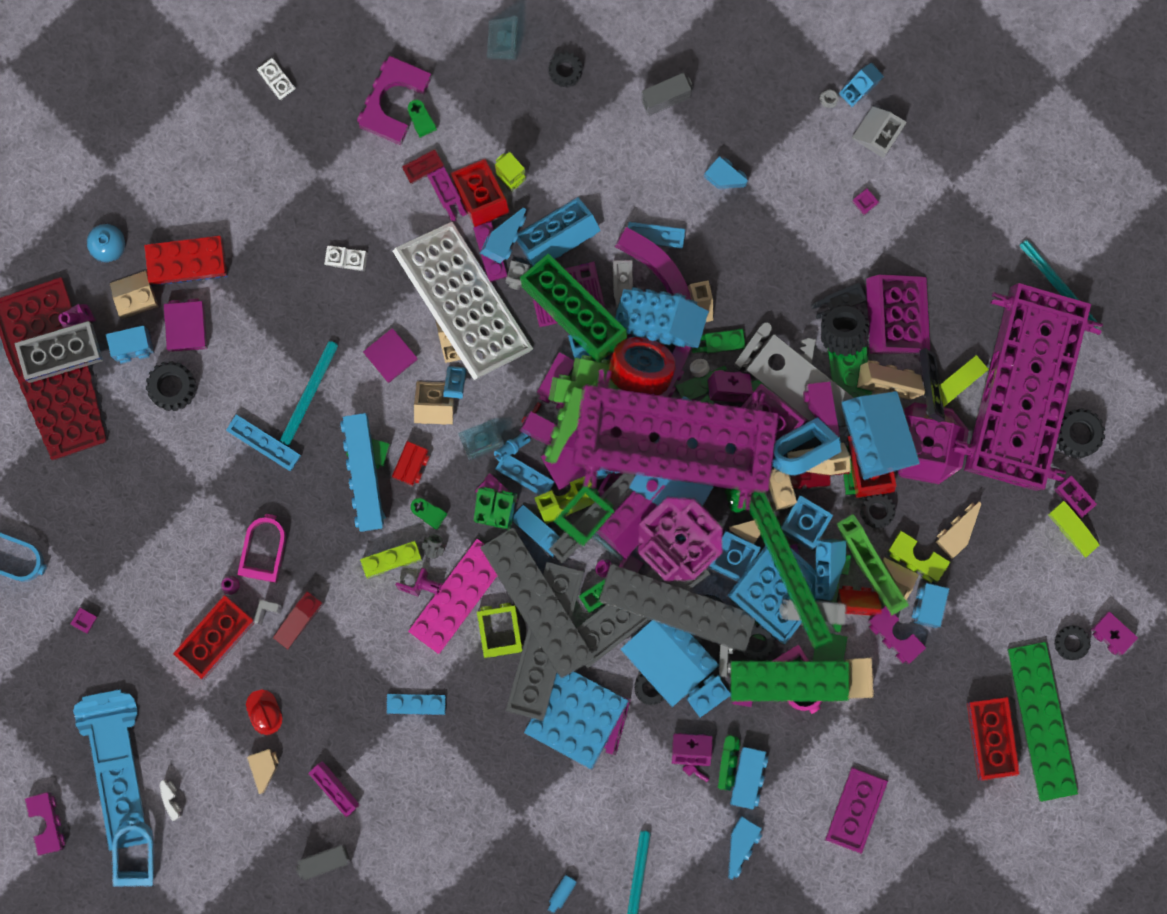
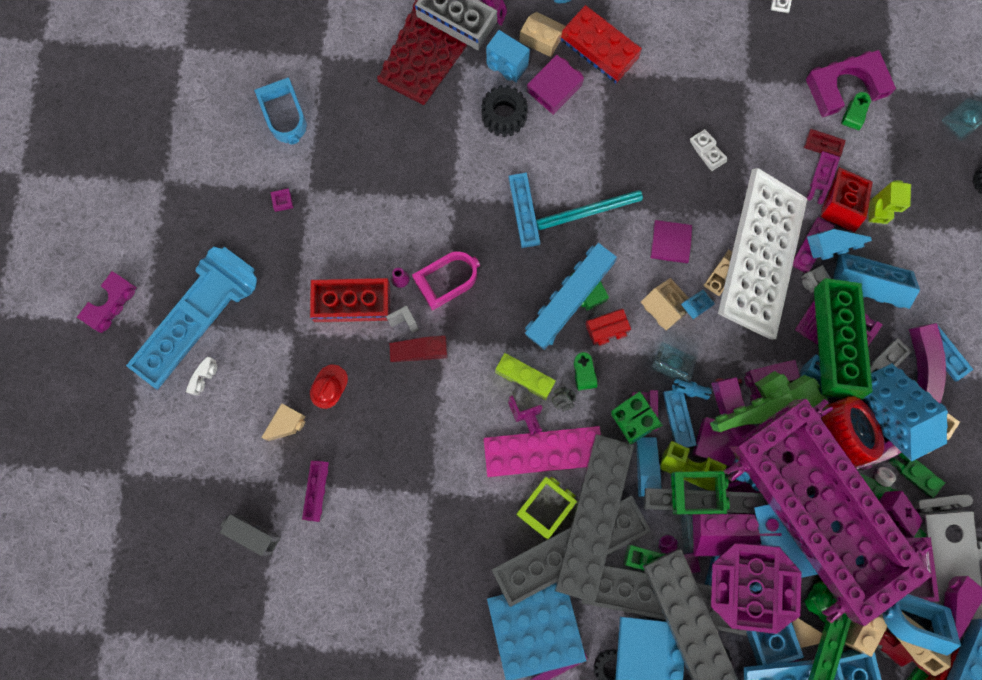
camera: 50 degrees right, 5 degrees down
(133, 878) = (119, 401): dark azure window -> none
(415, 704) = (434, 494): dark azure plate -> none

